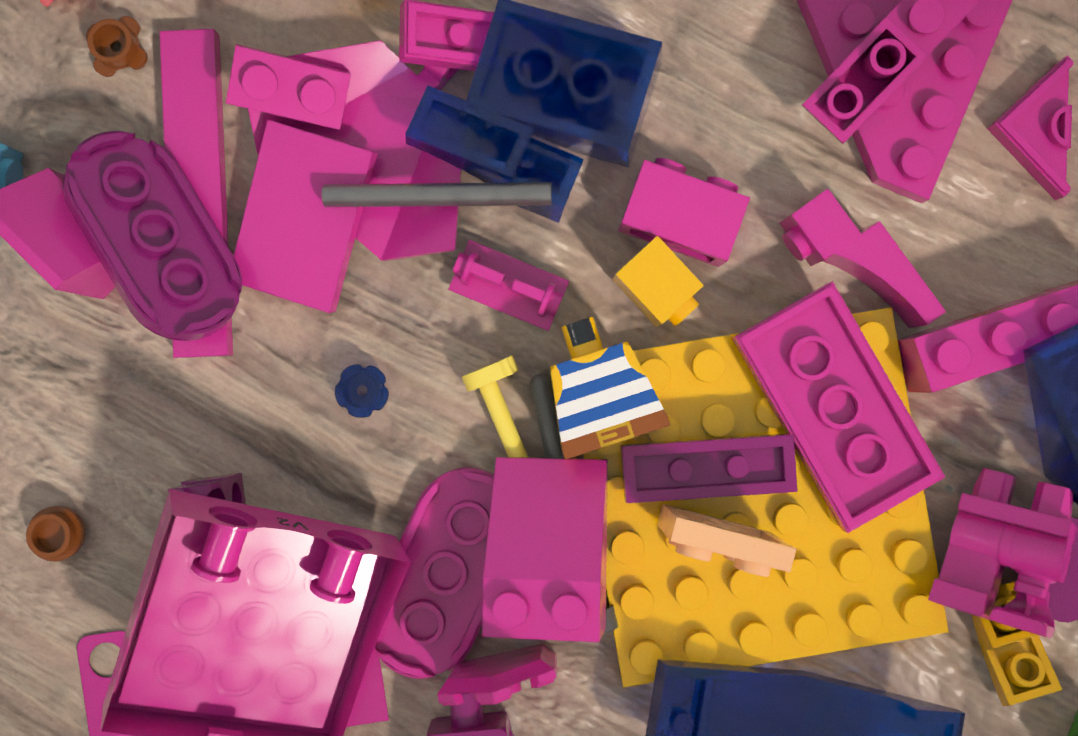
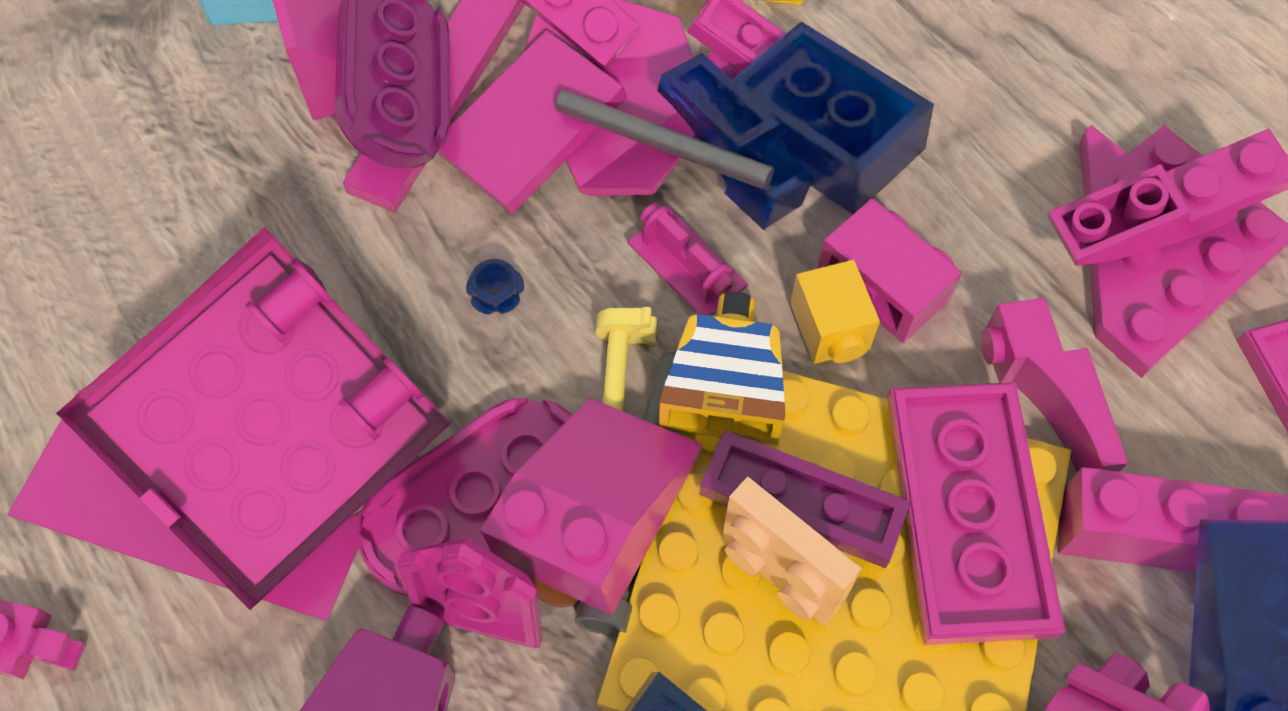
camera: 25 degrees right, 25 degrees down
(55, 533) = (133, 278): dark orange plate -> none

